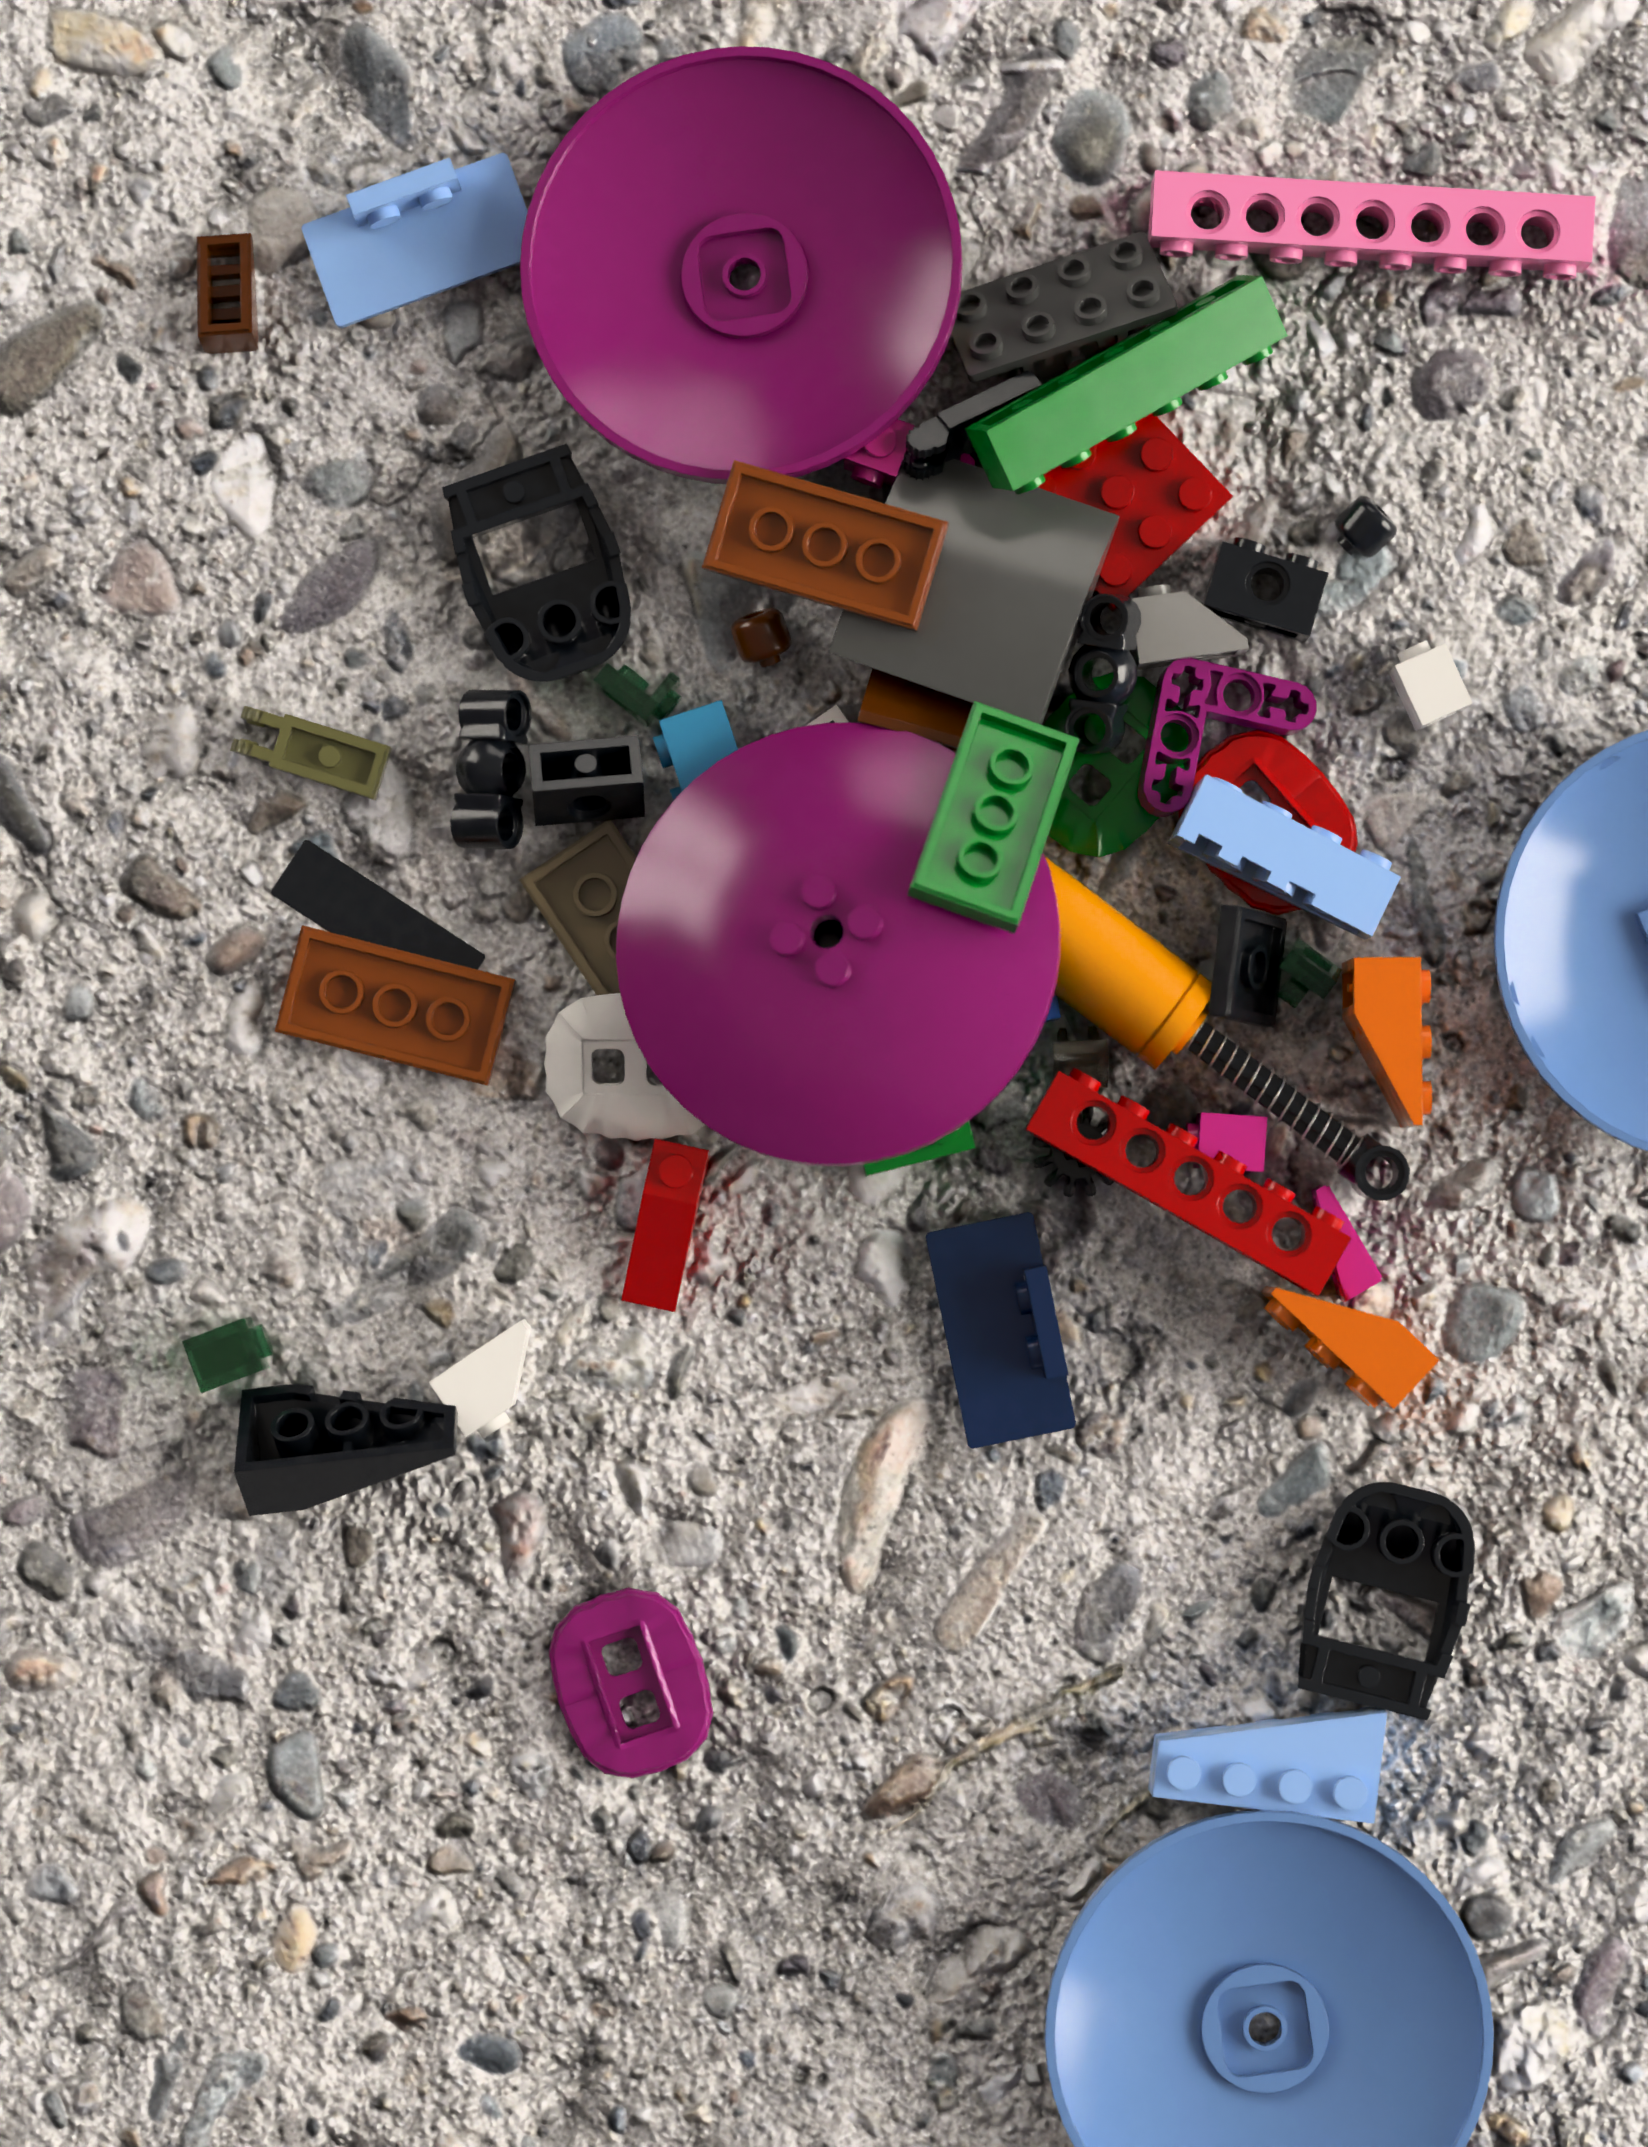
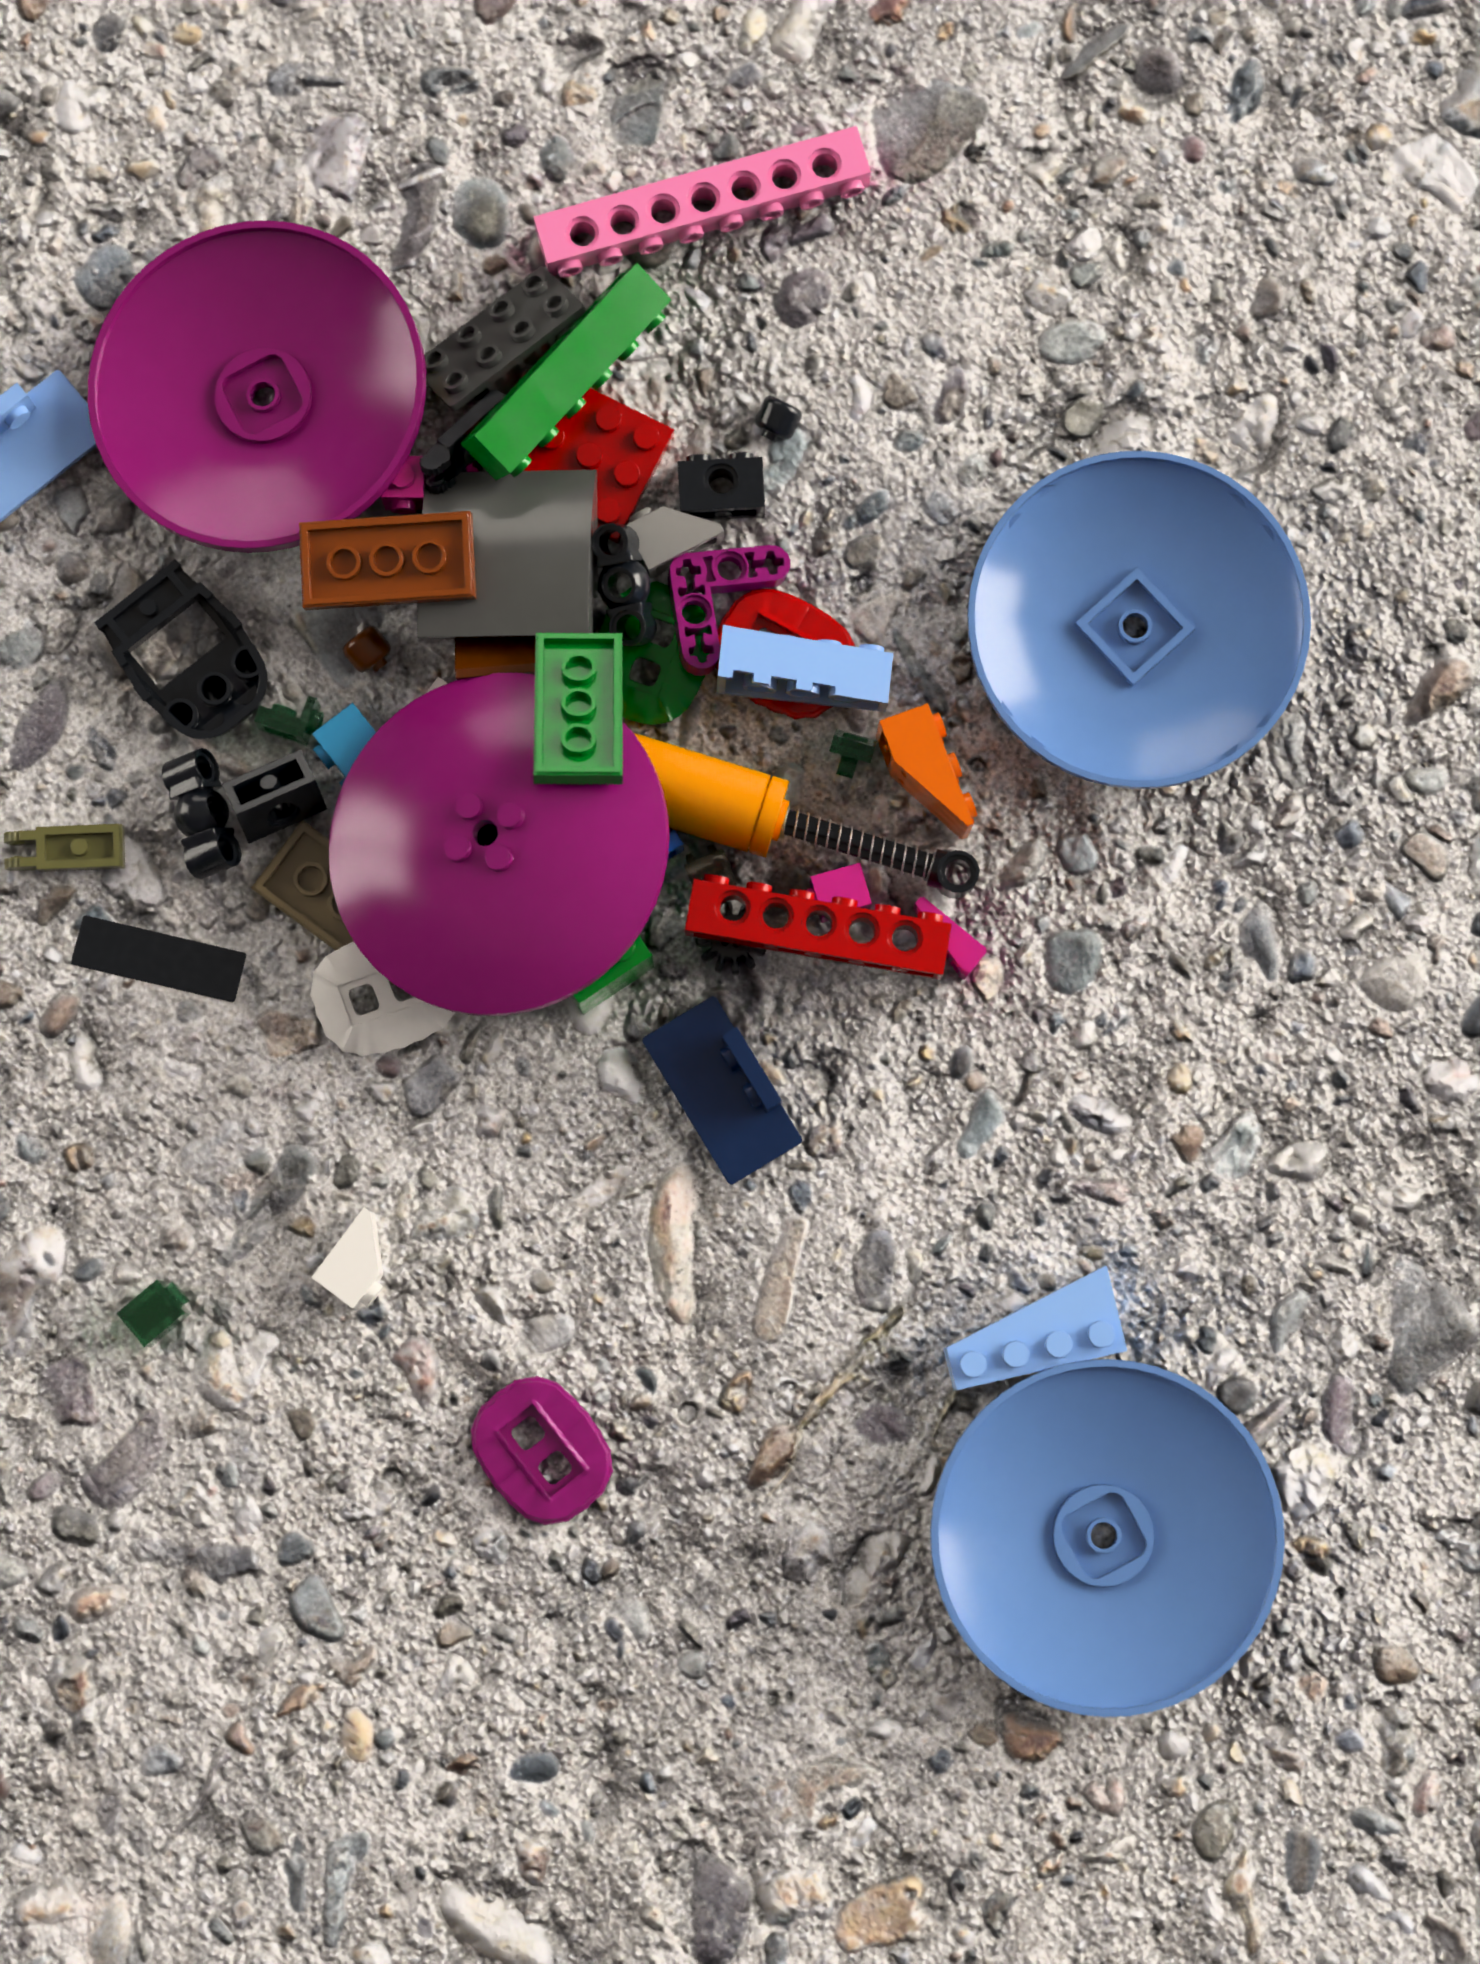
camera: 25 degrees left, 5 degrees down
(318, 1447) = (242, 1359): black wedge -> none
(395, 1005) = (191, 1012): dark orange tile -> none
(665, 1224) = (447, 1100): red slope -> none
(1247, 966) = (806, 759): black tile -> none
(1373, 1350) = (992, 1002): orange slope -> none
(1402, 1544) = (1072, 1141): black slope -> none
(1429, 684) = (865, 513): white brick -> none

